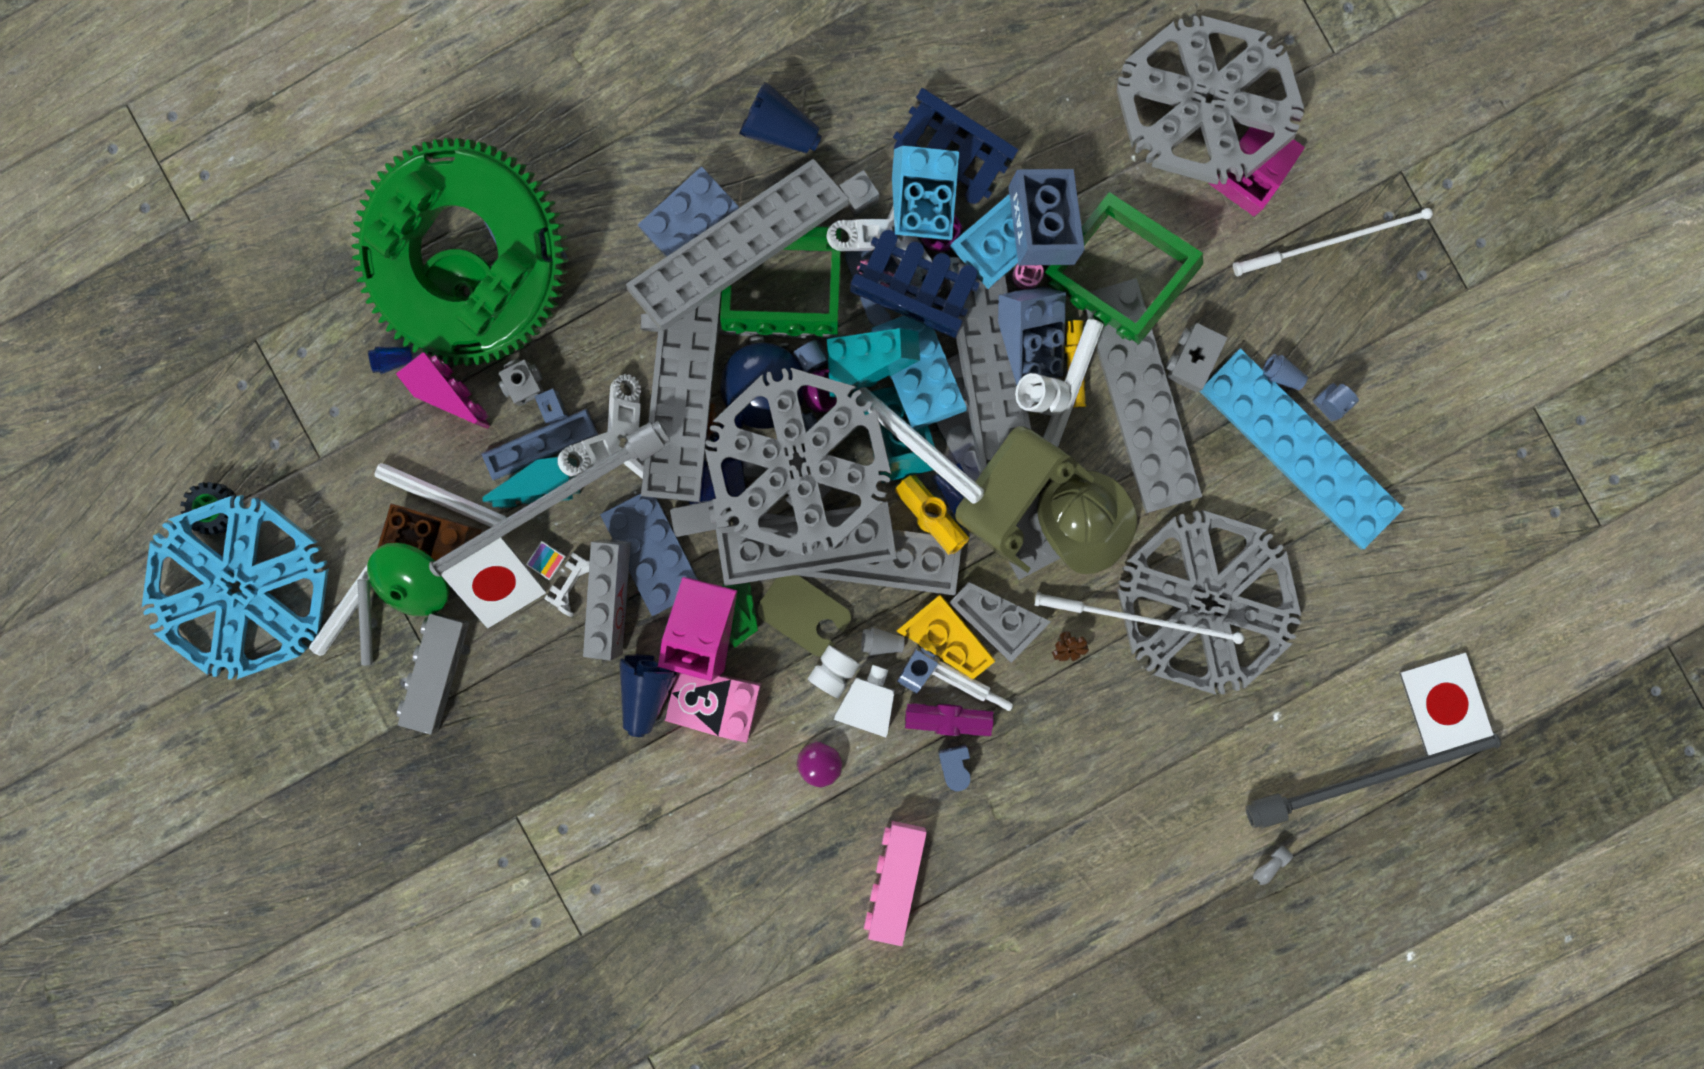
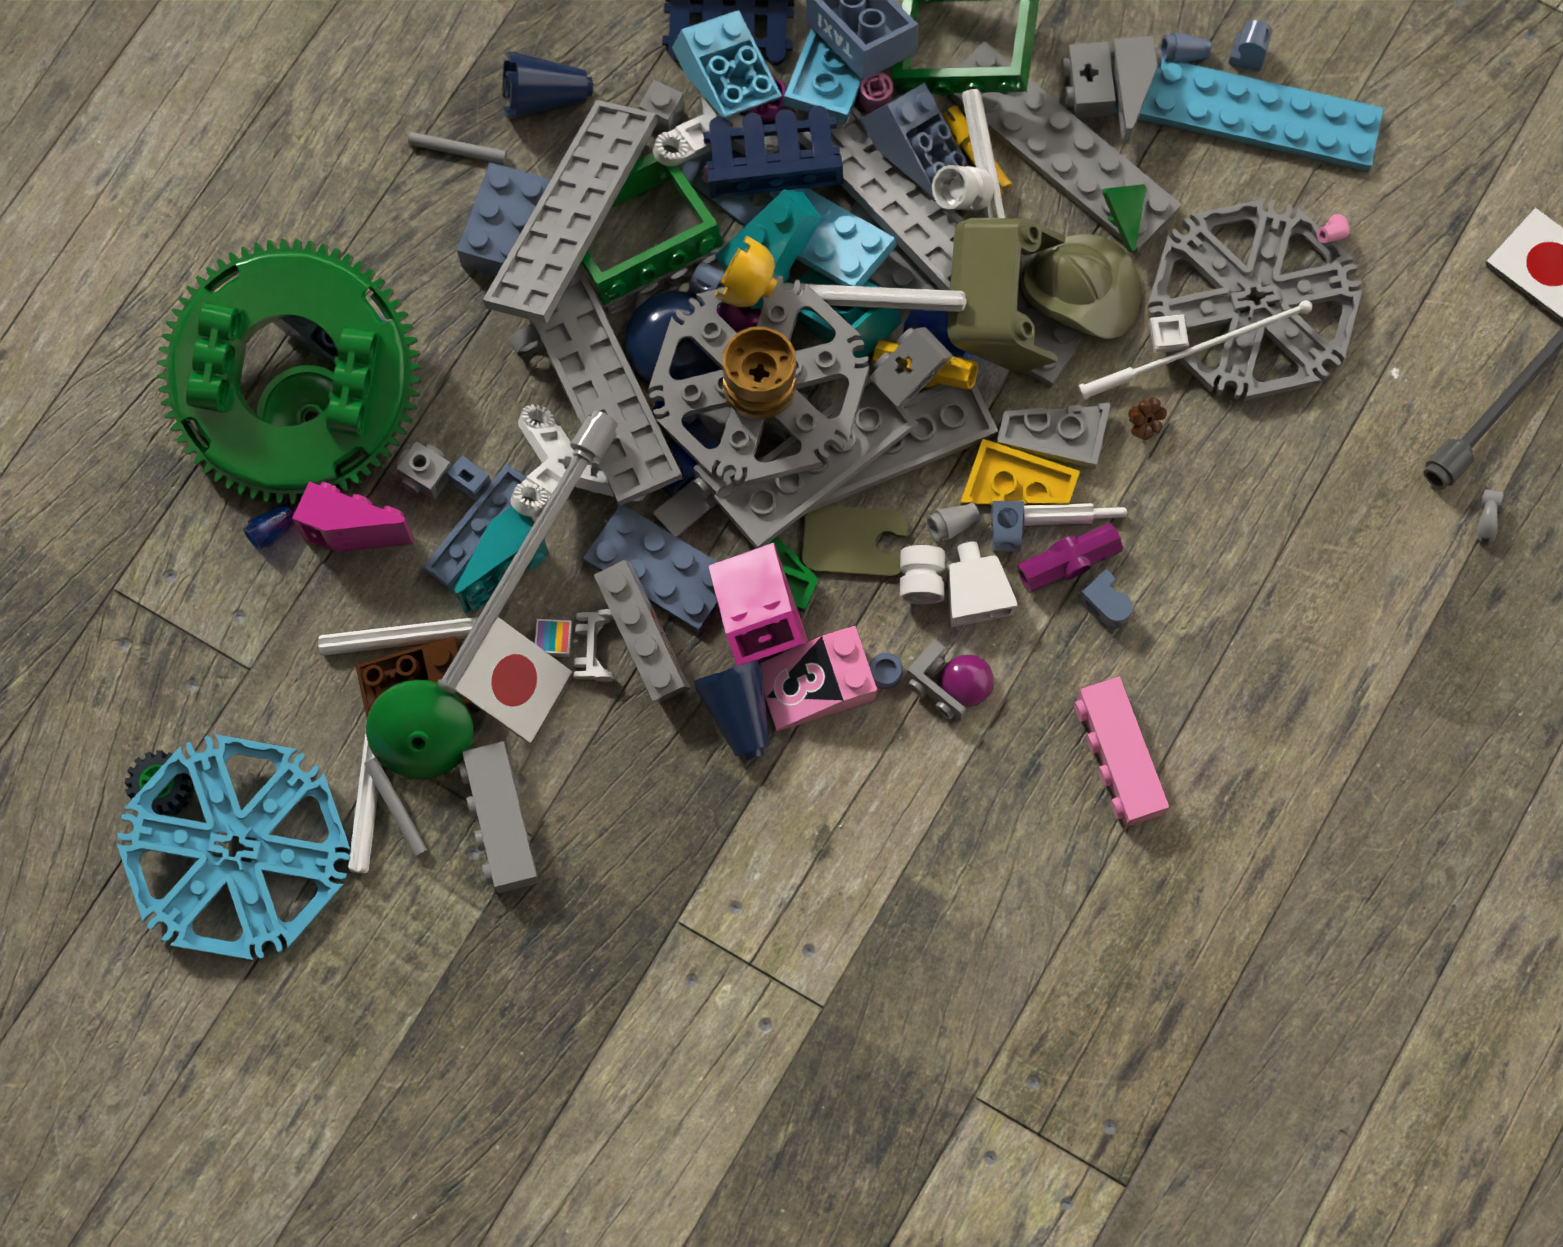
camera: 30 degrees left, 15 degrees down
(691, 134) = (457, 148): none -> light grey bar
(767, 723) = (886, 670): none -> sand blue tile
(791, 450) = (762, 356): none -> pearl gold wheel
(799, 738) = (929, 664): none -> light grey bracket
(831, 381) = (748, 276): none -> yellow cylinder
(929, 517) = (928, 359): none -> light grey brick
(1126, 595) = (1168, 333): none -> white tile
(1153, 482) = (1126, 211): none -> green piece
(1230, 375) = (1133, 70): none -> light grey slope
(1304, 587) = (1335, 229): none -> bright pink arm

